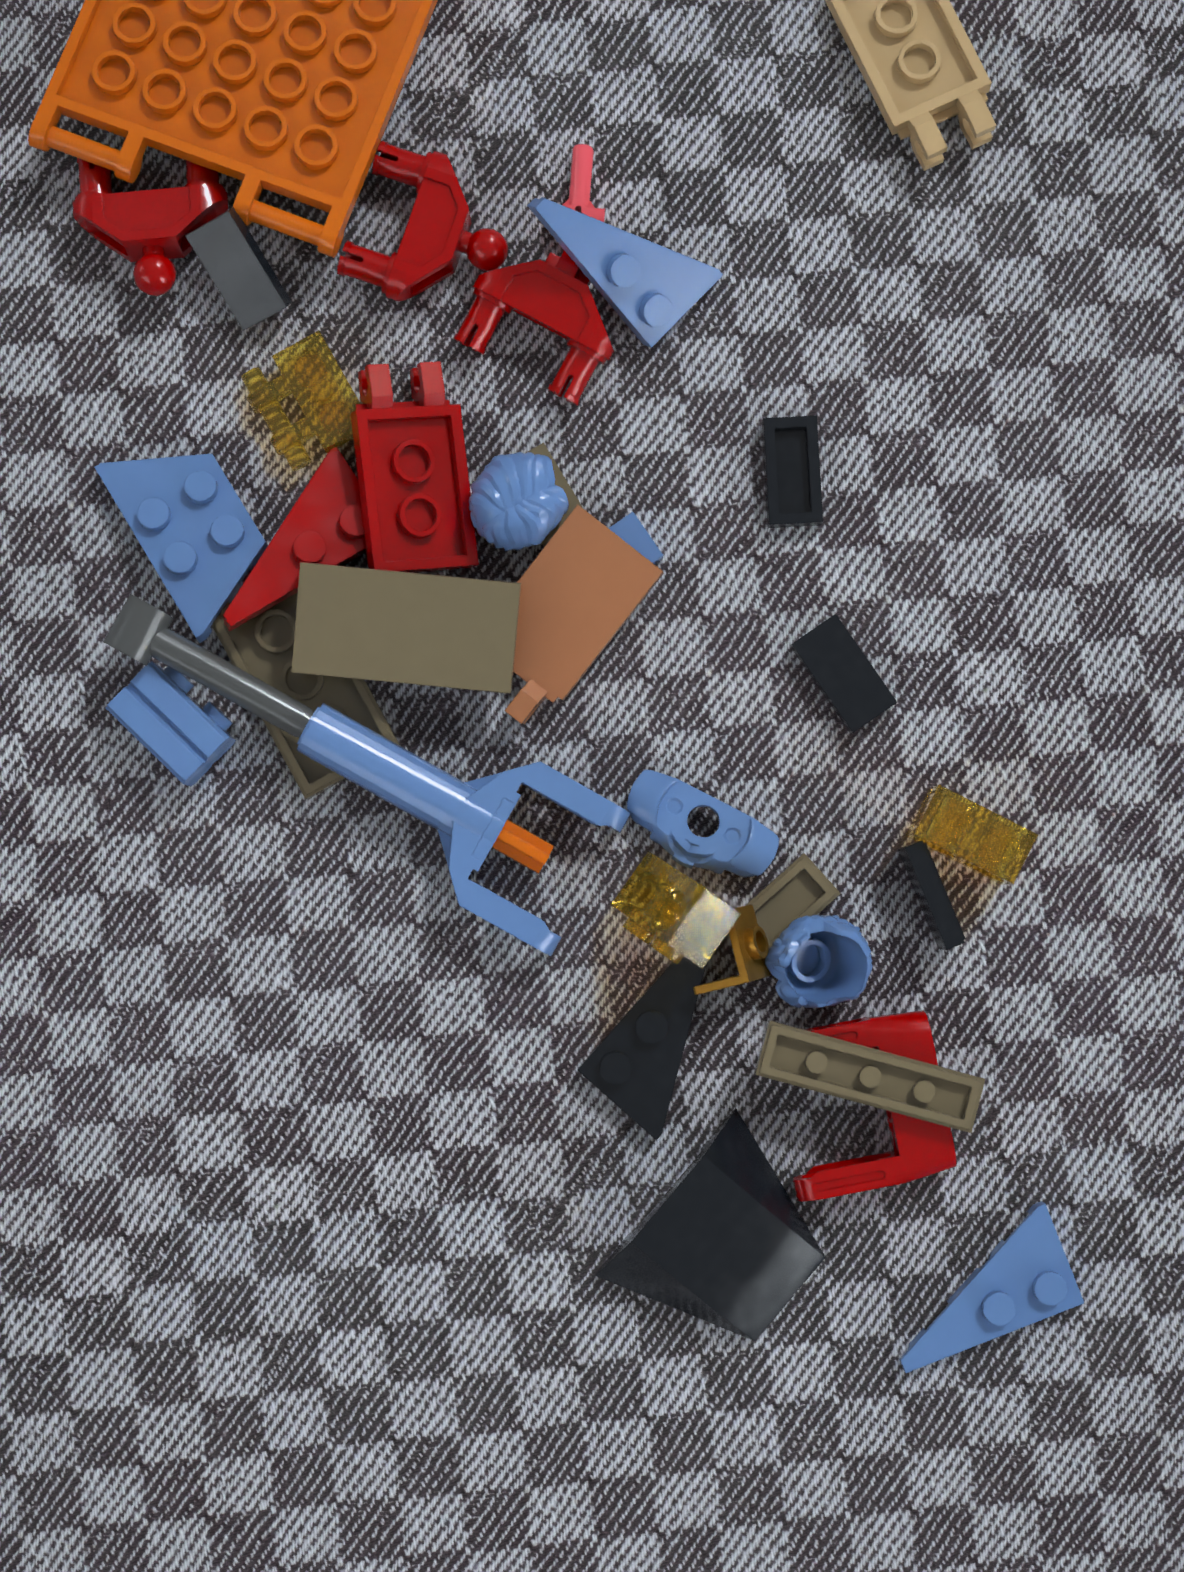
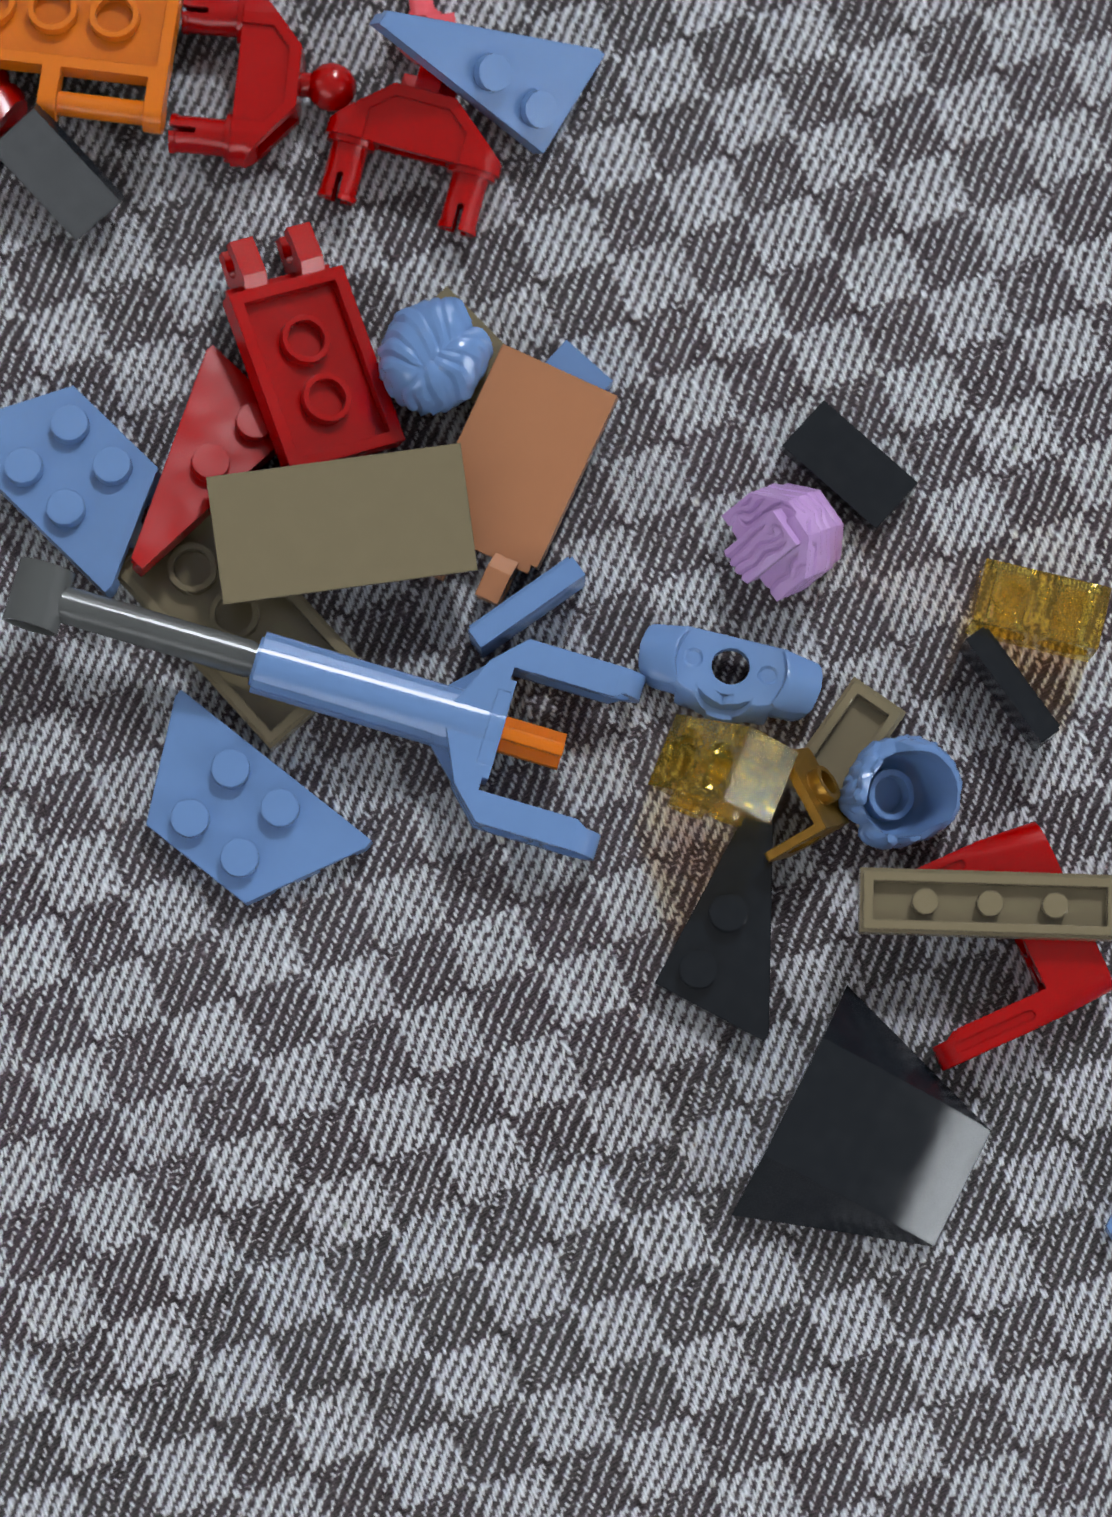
camera: 10 degrees left, 5 degrees down
(172, 723) = (98, 697): medium blue brick -> none
(269, 844) = (240, 810): none -> medium blue wing
(320, 390) = (179, 286): clear yellow plate -> none
(545, 730) = (526, 606): none -> medium blue tile
(774, 722) = (784, 537): none -> lavender hair
(792, 471) = (735, 254): black tile -> none

